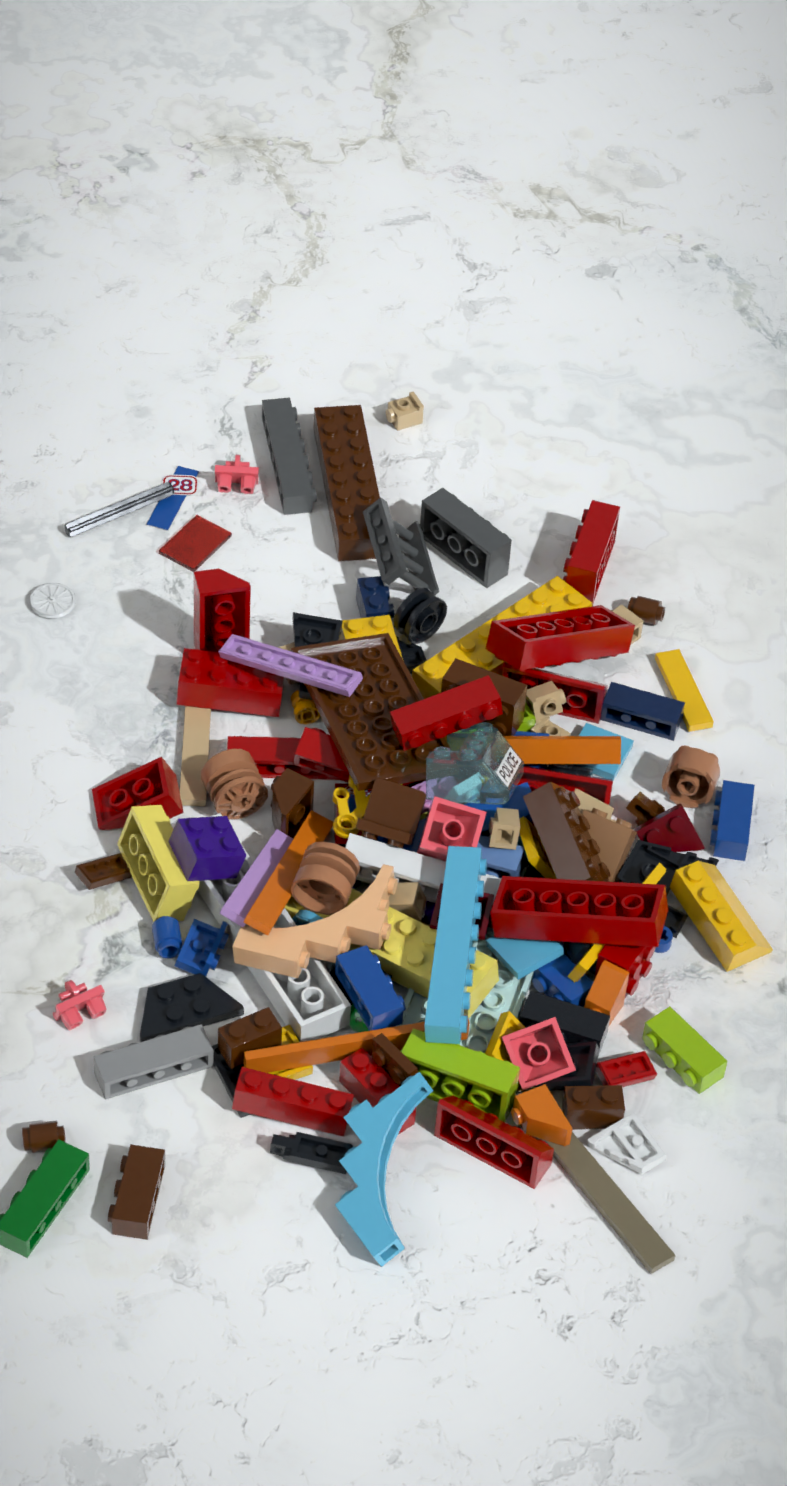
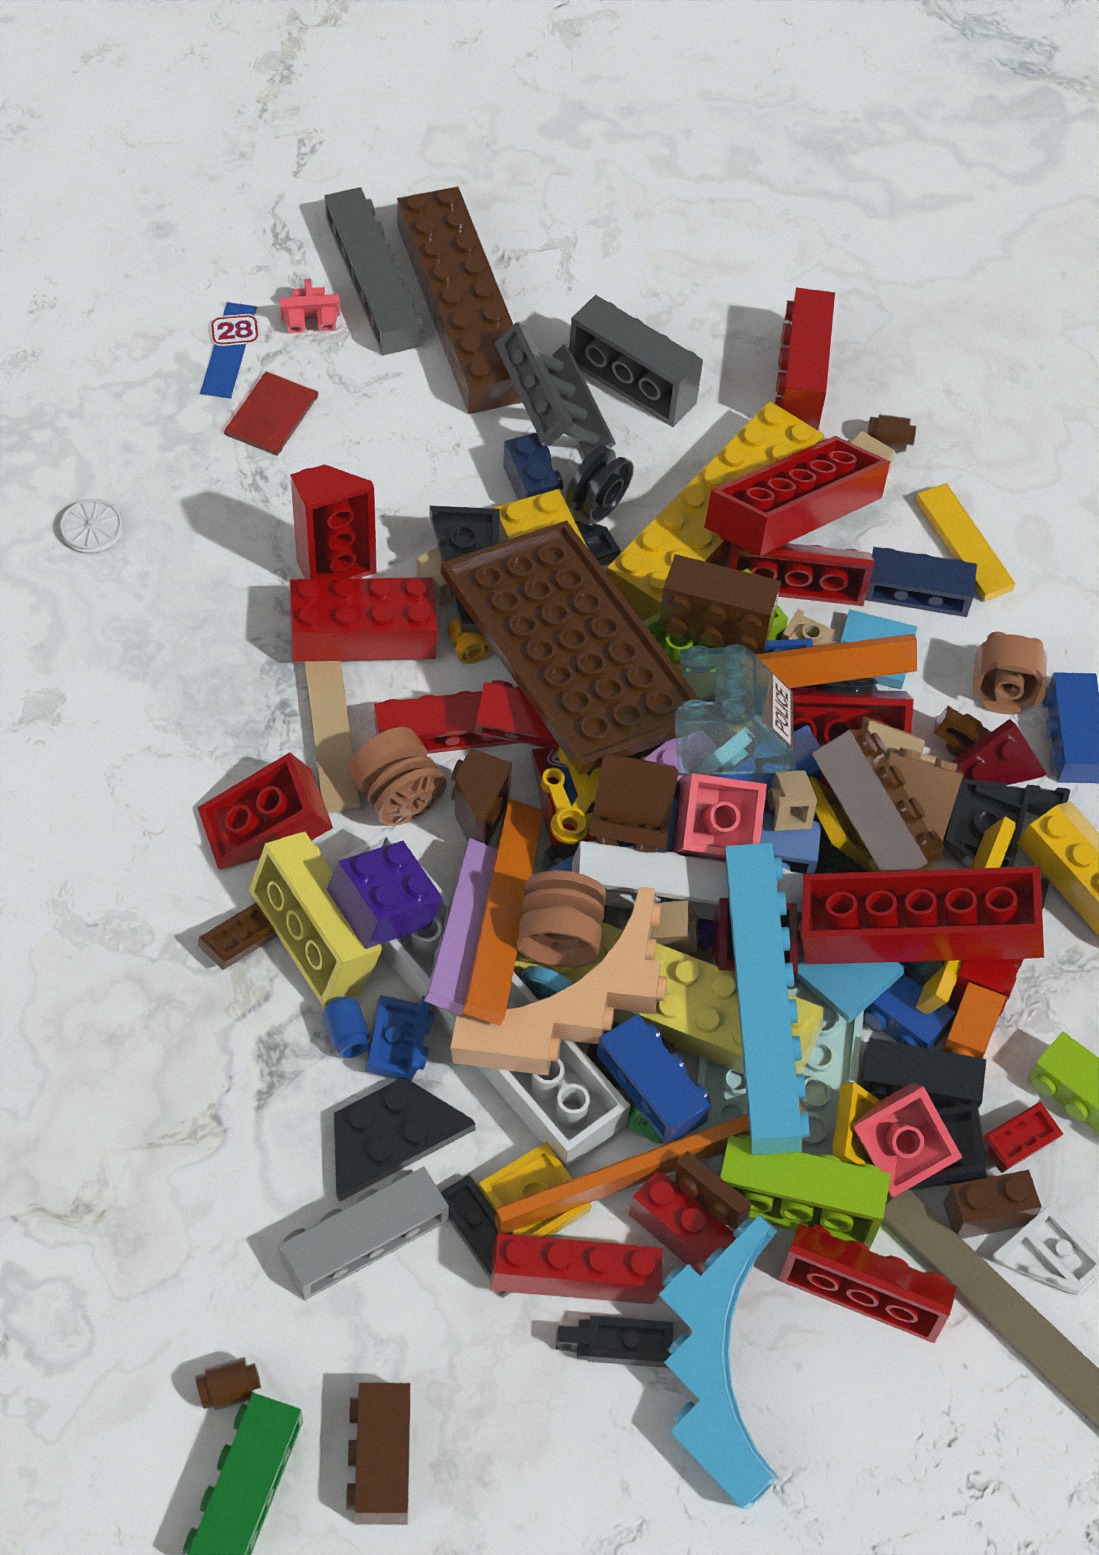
camera: 10 degrees left, 10 degrees up
(68, 1010) = (228, 1171): coral hips -> none
(119, 509) = (159, 377): axle -> none
(247, 1034) = (497, 1179): reddish brown brick -> none
(291, 665) = (447, 591): lavender tile -> none
(405, 412) = (515, 187): tan brick -> none
(446, 713) = (682, 642): red brick -> none
(541, 1116) = (928, 1235): orange slope -> none
(545, 700) = (798, 590): tan brick -> none

